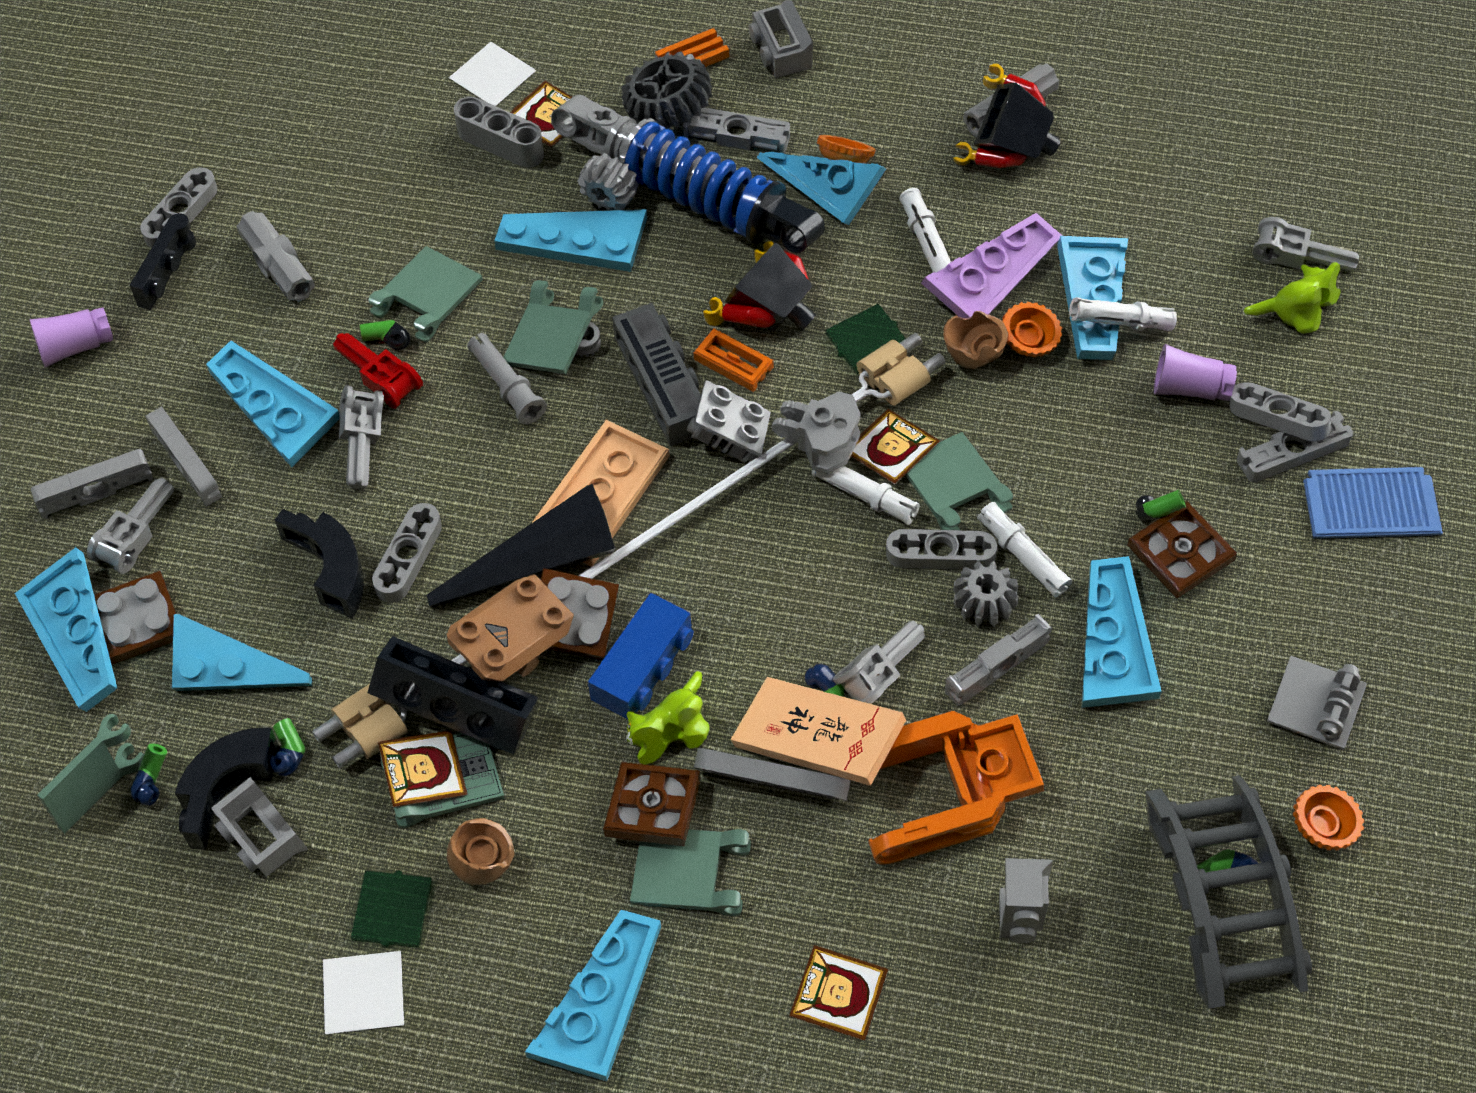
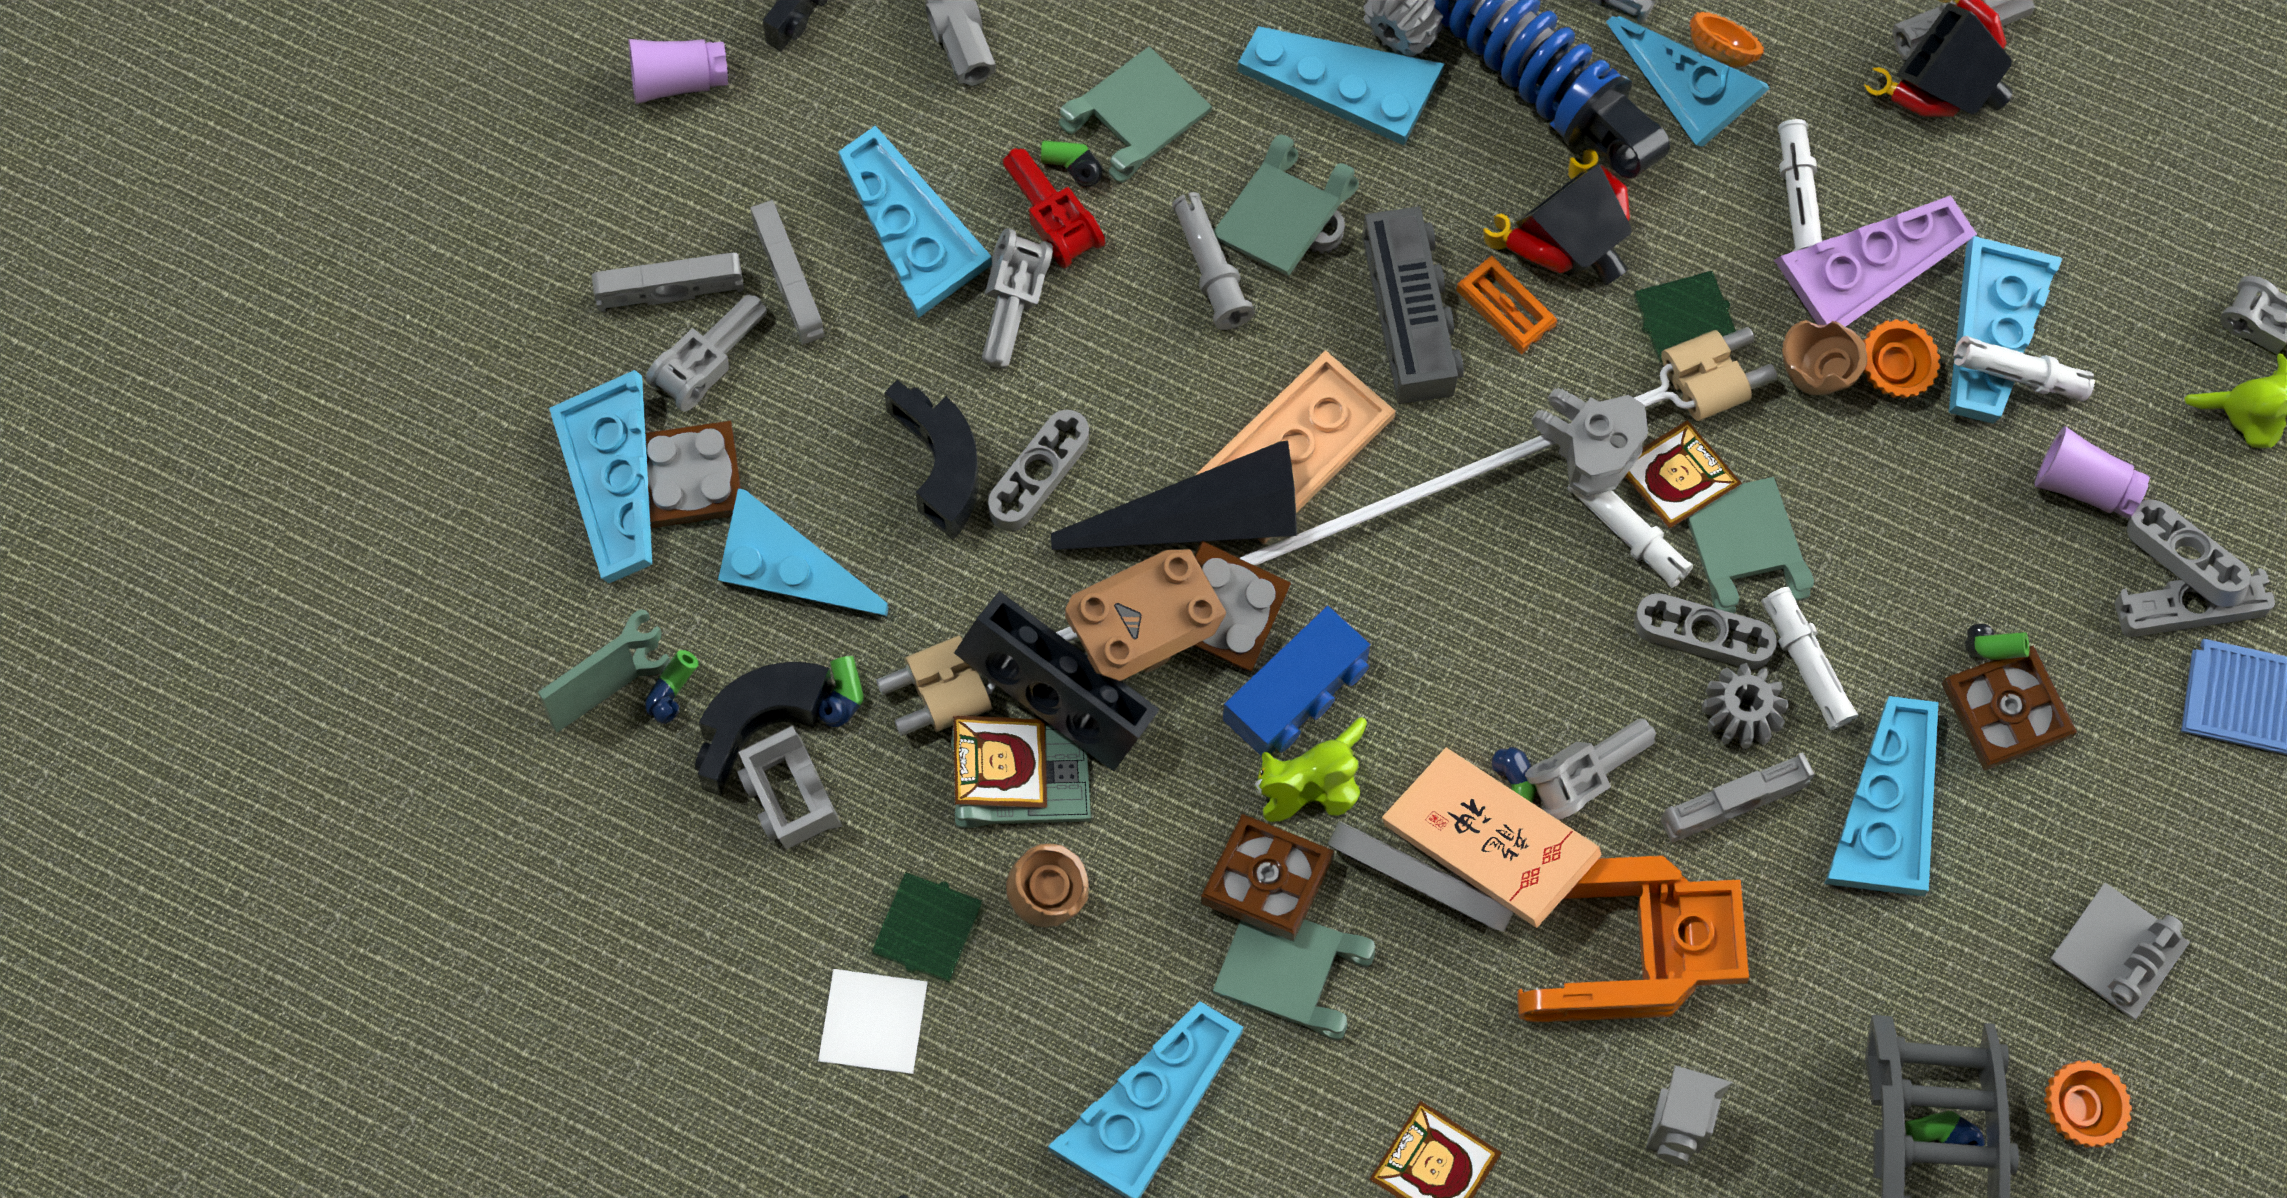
camera: 10 degrees right, 10 degrees up
(732, 419) = (1483, 393): light grey hinge -> none

